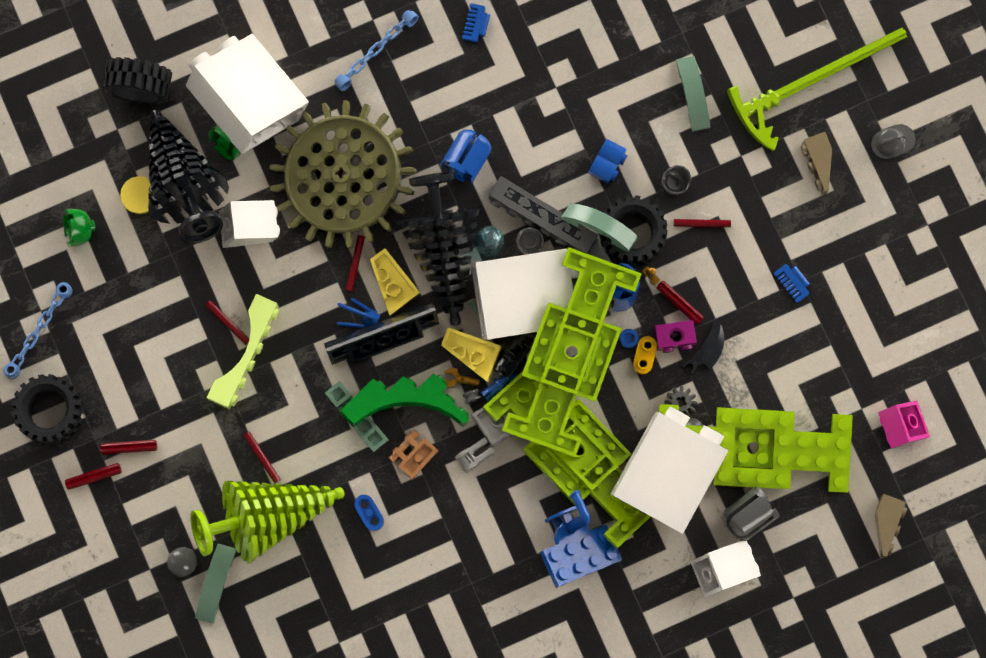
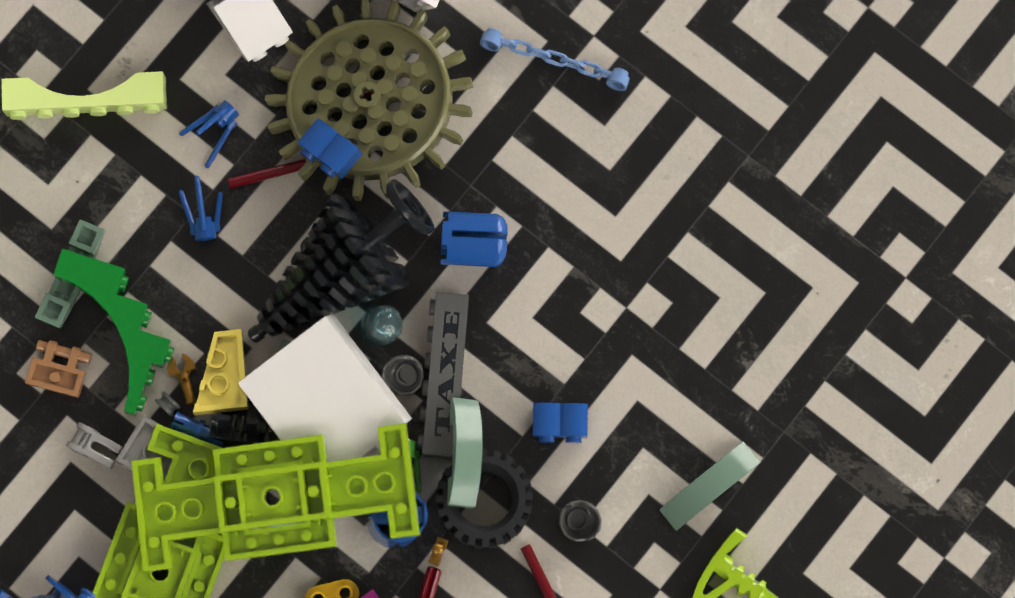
camera: 60 degrees right, 0 degrees up
(226, 321) = (114, 57): dark red bar -> none
(304, 272) = (220, 115): none -> blue plant
(365, 211) = (329, 149): none -> blue brick
(382, 335) = (188, 252): black slope -> none
(393, 282) = (266, 232): light yellow wing -> none
(480, 23) = (656, 171): blue piece -> none
(628, 338) = (343, 565): blue tile -> none

